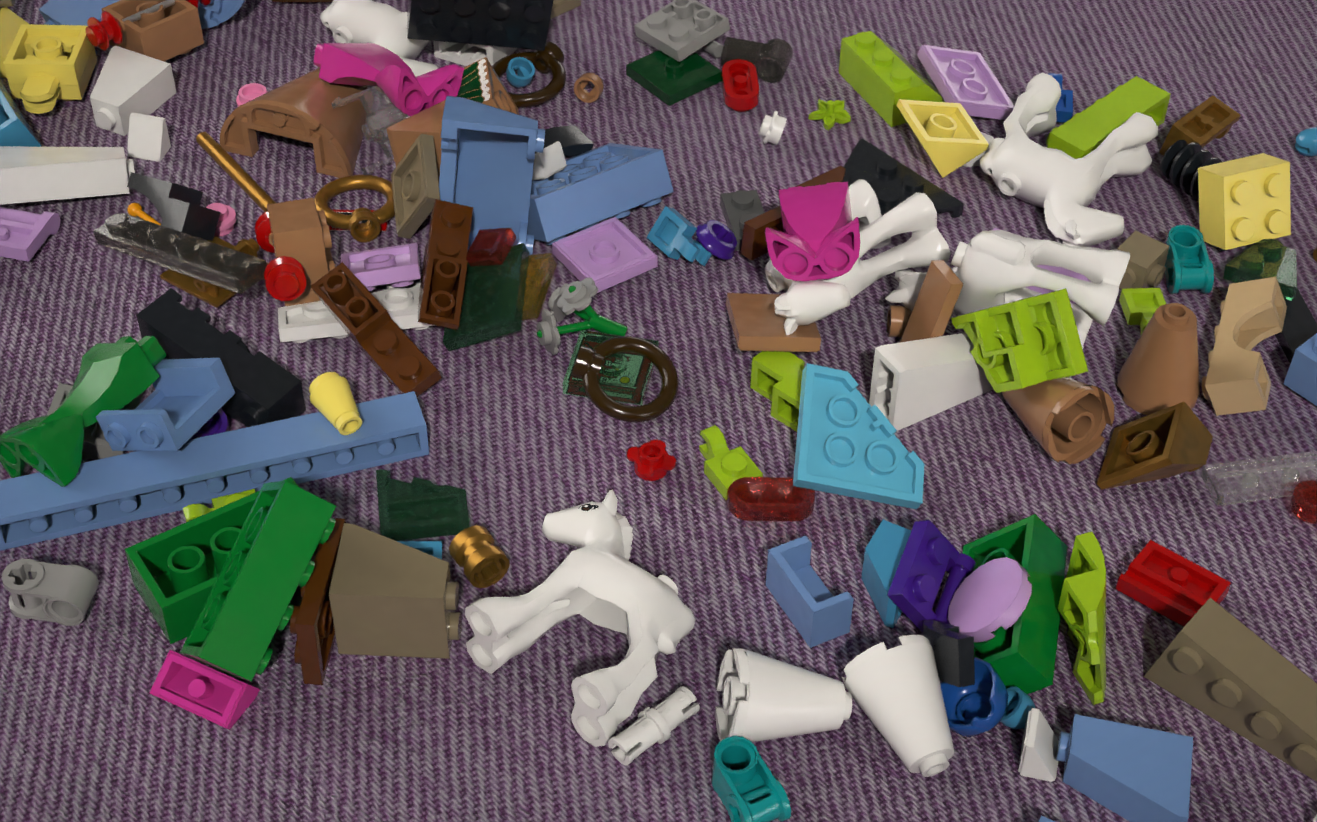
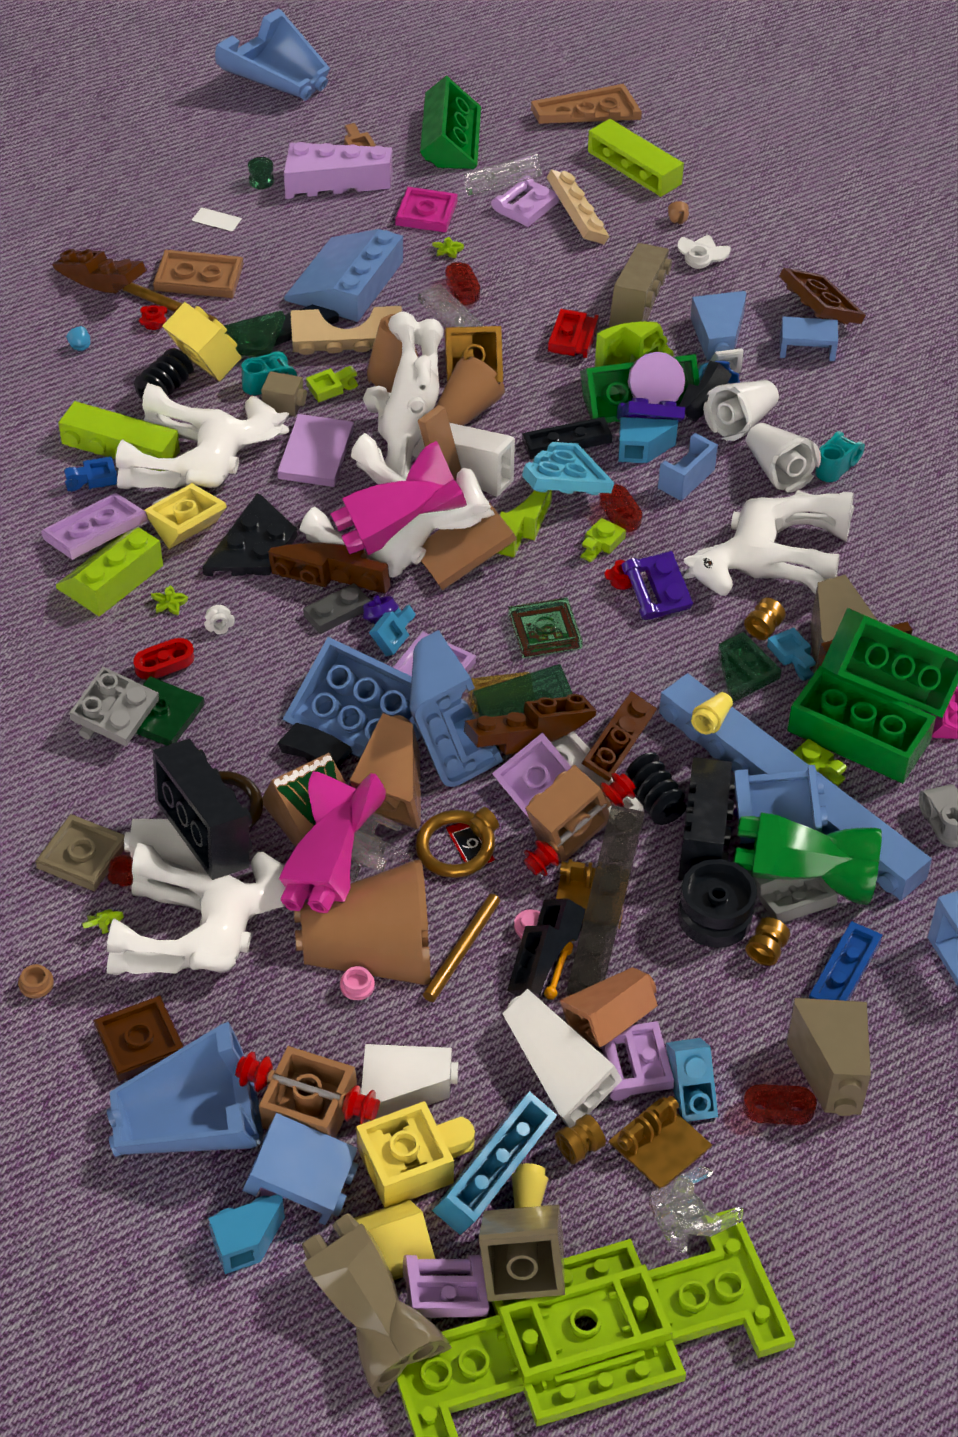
camera: 115 degrees left, 5 degrees up
(35, 364) = (766, 944): none -> pearl gold wheel
(62, 212) = (610, 1006): none -> nougat slope
(98, 316) = (717, 903): none -> black wheel
(148, 137) = (460, 1029): white slope -> none
(301, 351) = (656, 789): none -> black piece
(415, 186) = (448, 777): dark tan plate -> none
(490, 247) = (483, 706): clear red tile -> none
(549, 162) = (358, 726): white slope -> none
(573, 299) = (519, 635): light grey plant -> none
(583, 81) = (215, 754): medium nougat hinge -> none
(589, 364) = (567, 628): dark brown piece -> none
(593, 483) = (665, 582): none -> dark purple plate
(761, 56) = (119, 653): clear smoke piece -> none
(946, 495) = (585, 433): none -> black tile
(1025, 341) = (455, 394): lime slope -> none
(1202, 124) = (102, 388): pearl gold hinge -> none

